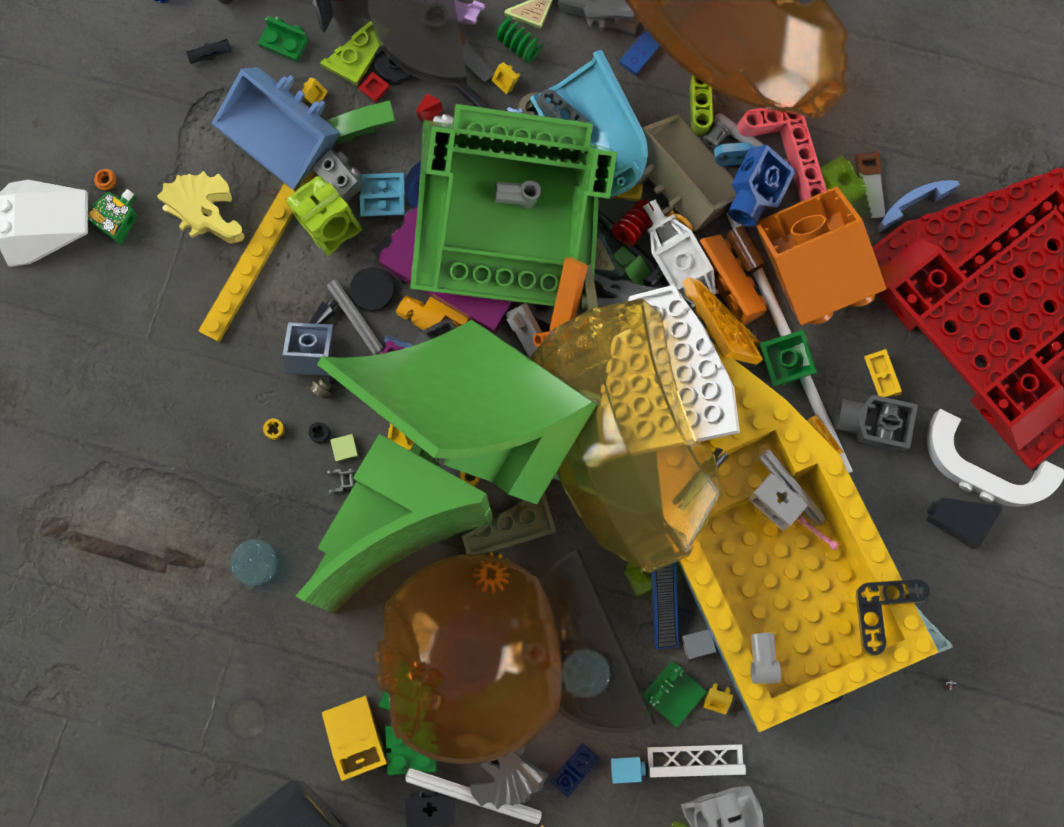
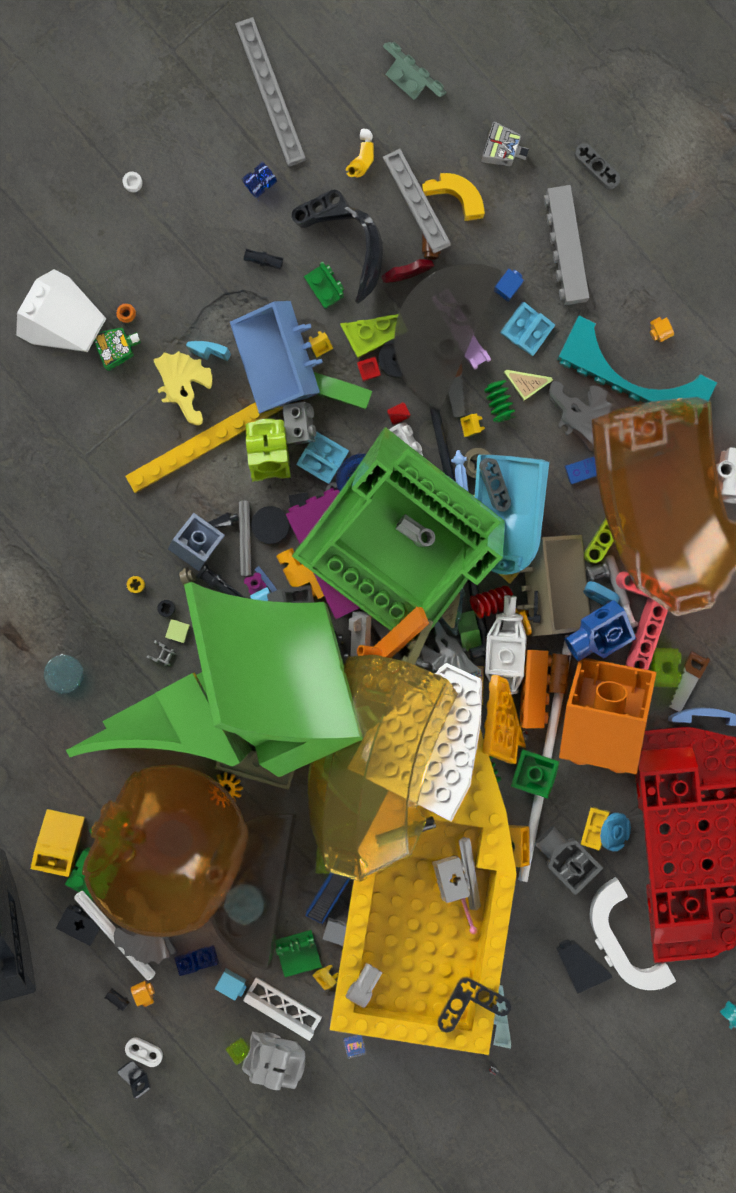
camera: 25 degrees right, 10 degrees up
(38, 59) = (132, 182): none -> white tile
(206, 158) = (204, 349): none -> medium azure slope
(687, 207) = (536, 618): none -> black piece
(795, 753) = (354, 1046): none -> clear tile
(904, 365) = (615, 831): none -> dark azure tile

